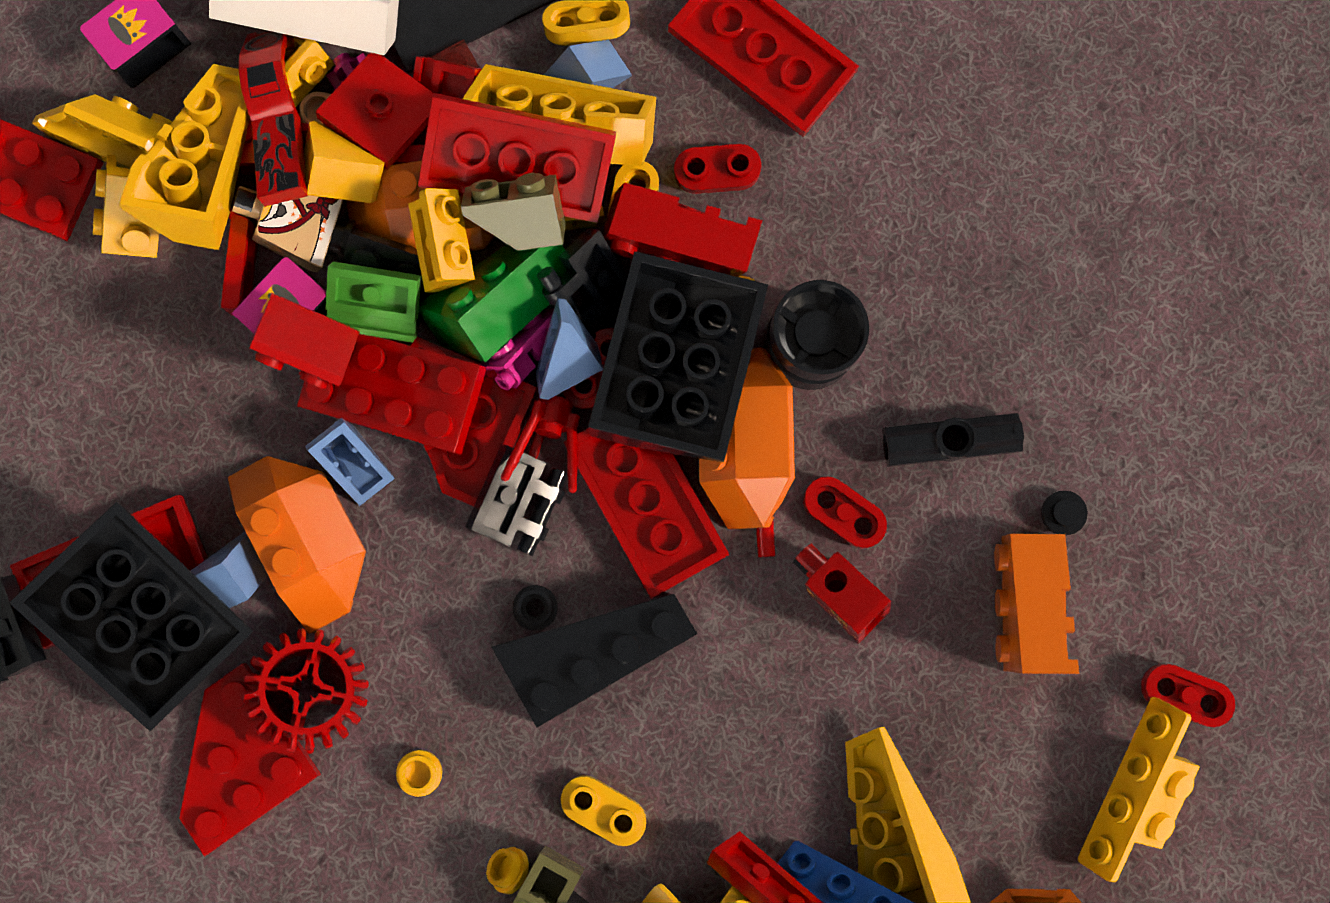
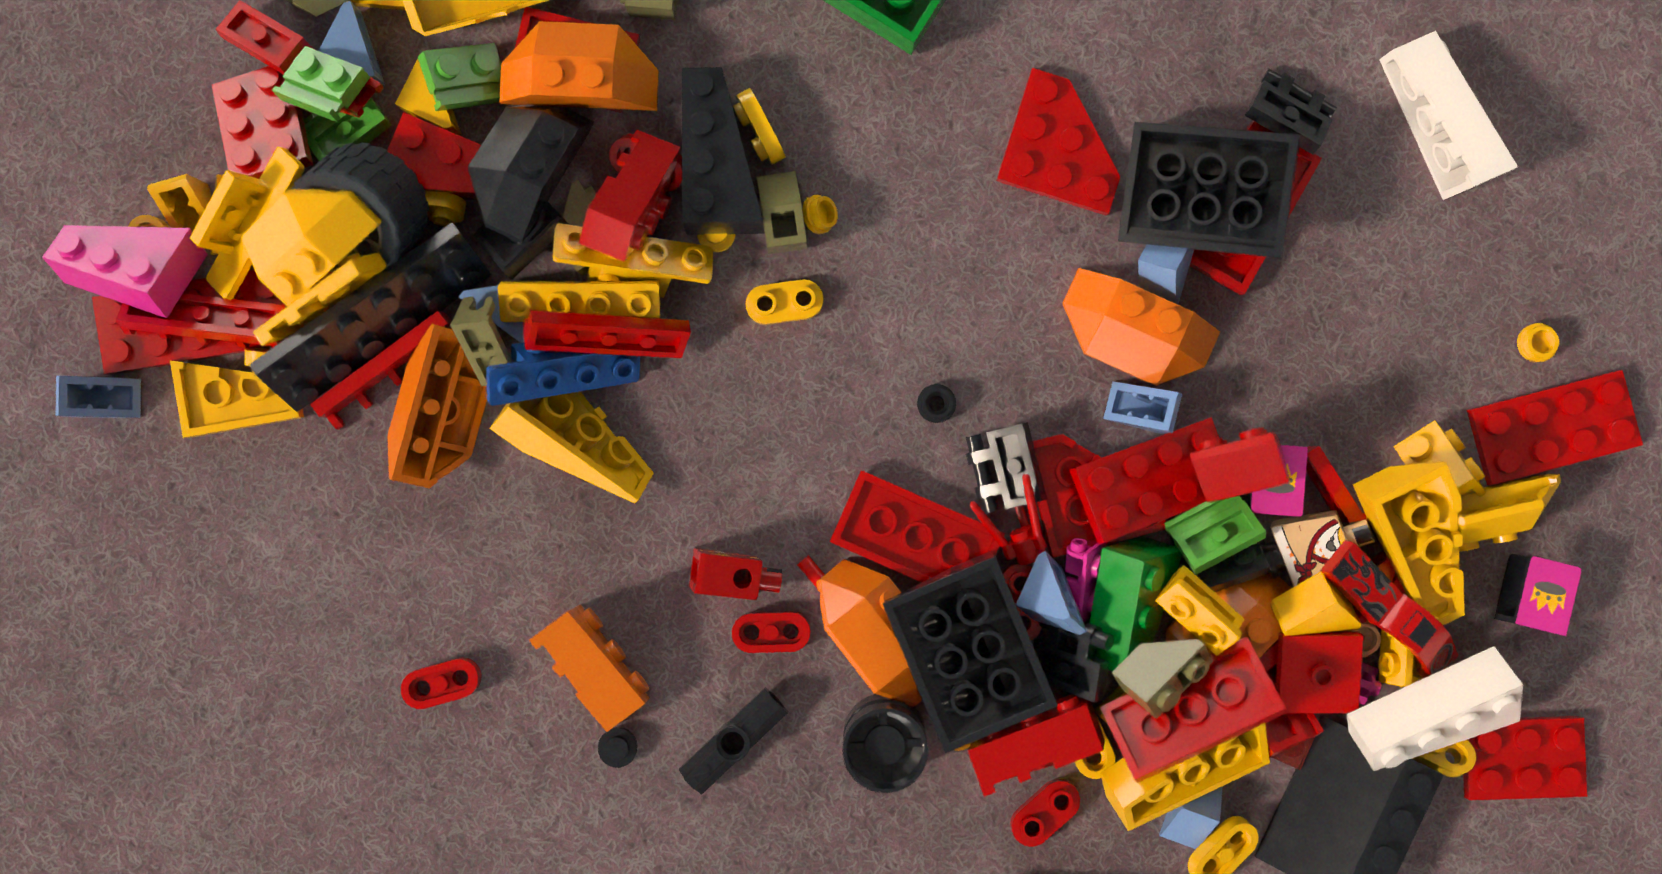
camera: 140 degrees right, 5 degrees up
(283, 686) = (1067, 221): red gear -> none
(419, 773) = (929, 232): yellow plate -> none
(582, 658) = (877, 393): black wedge -> none
(1143, 793) = (424, 592): yellow bracket -> none

